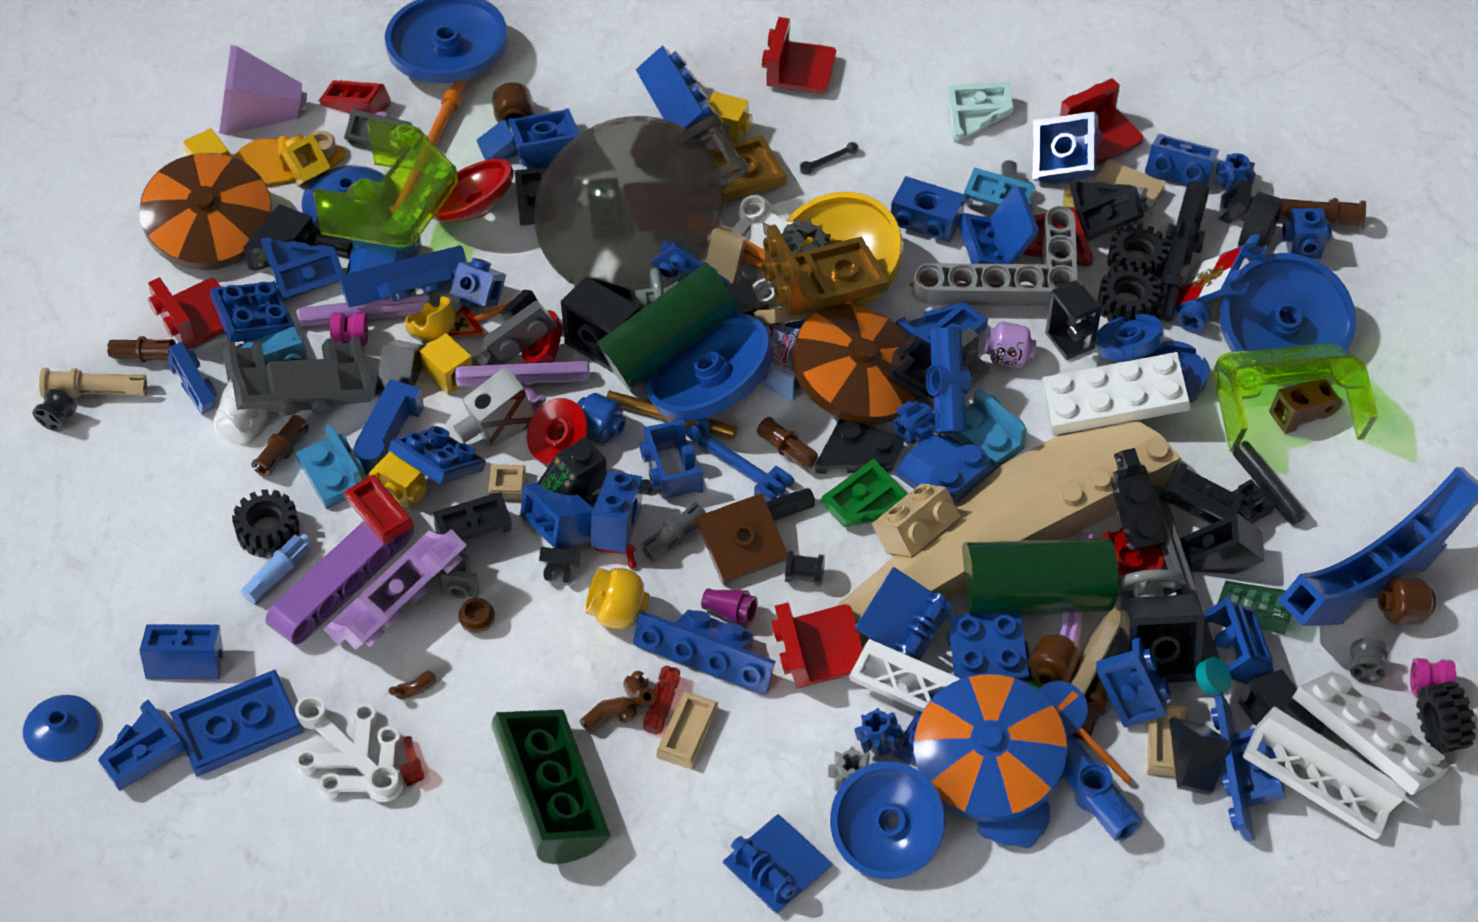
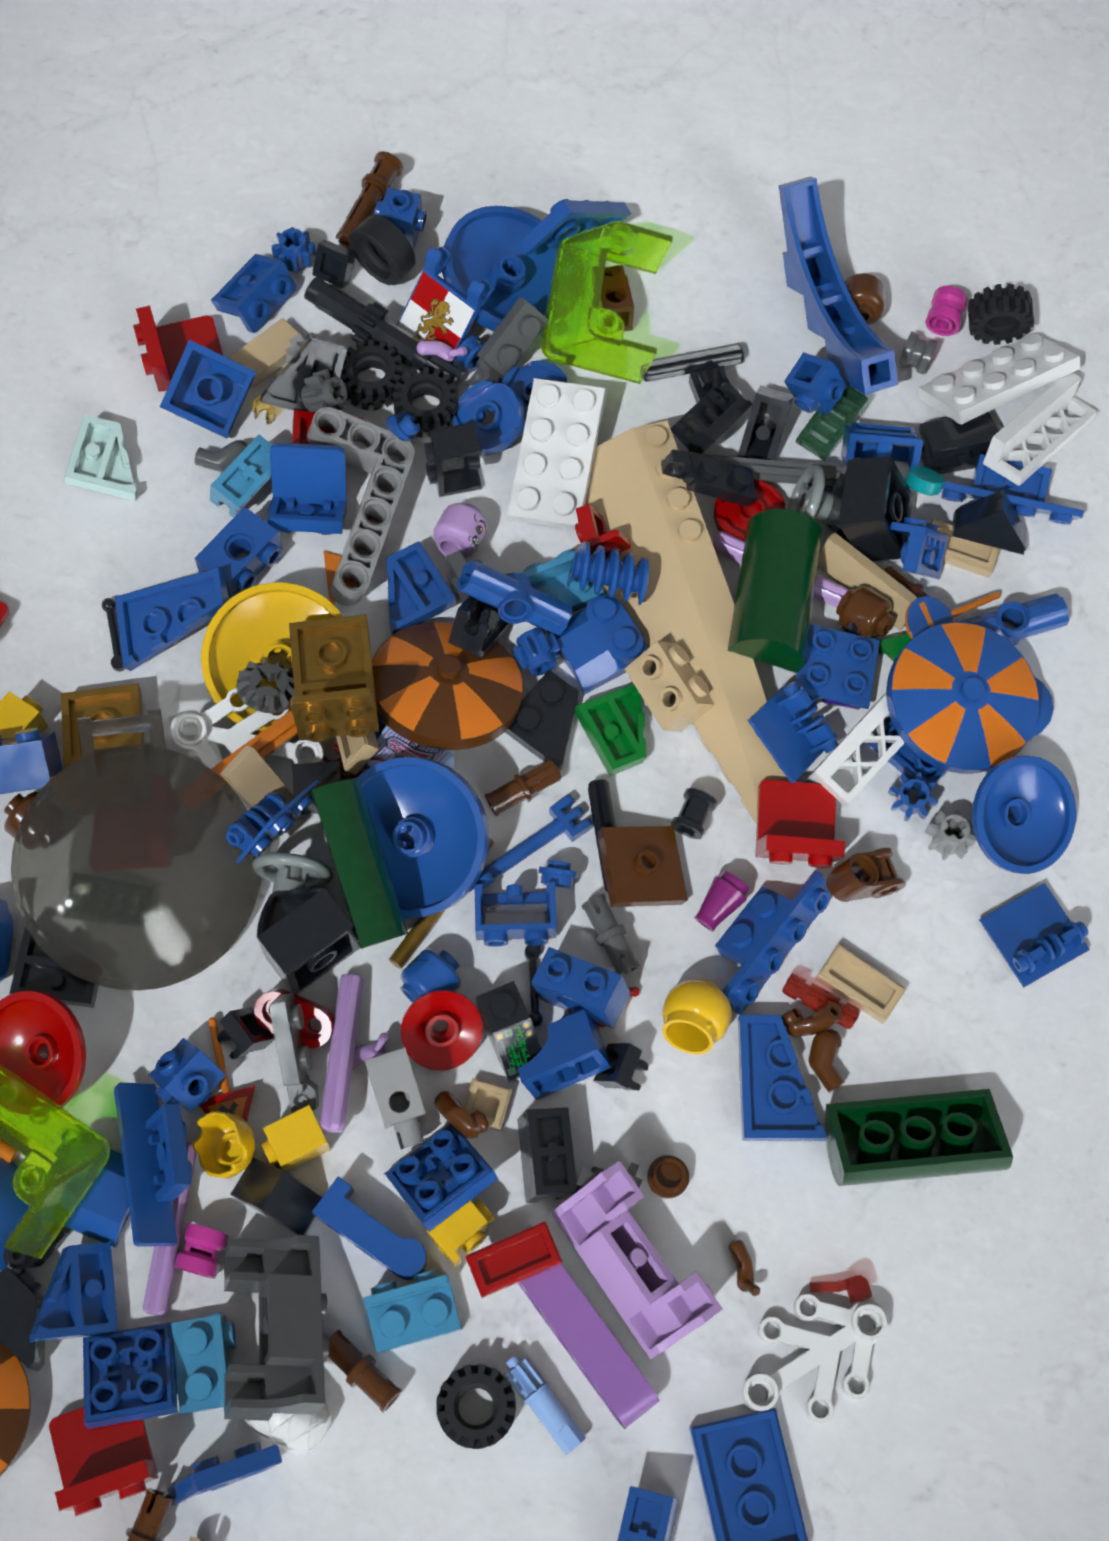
camera: 80 degrees left, 15 degrees up
(490, 454) = (454, 1112): none -> reddish brown arm
(576, 672) = (771, 1085): none -> blue wing
(716, 482) = (559, 873): none -> blue plate
(789, 709) = (865, 876): none -> reddish brown piece
(851, 172) = (166, 613): none -> blue wing
(1002, 444) = (610, 572): none -> blue piece
(1045, 435) = (593, 530): none -> red bracket
(1084, 270) = (403, 426): none -> blue arm
(1086, 206) = (323, 391): none -> dark grey gear
(1180, 288) = (440, 349): none -> lavender piece
(1210, 331) = (509, 342): none -> dark grey hinge
(1274, 563) = (815, 384): none -> blue brick
(1349, 331) = (572, 218): none -> blue wing

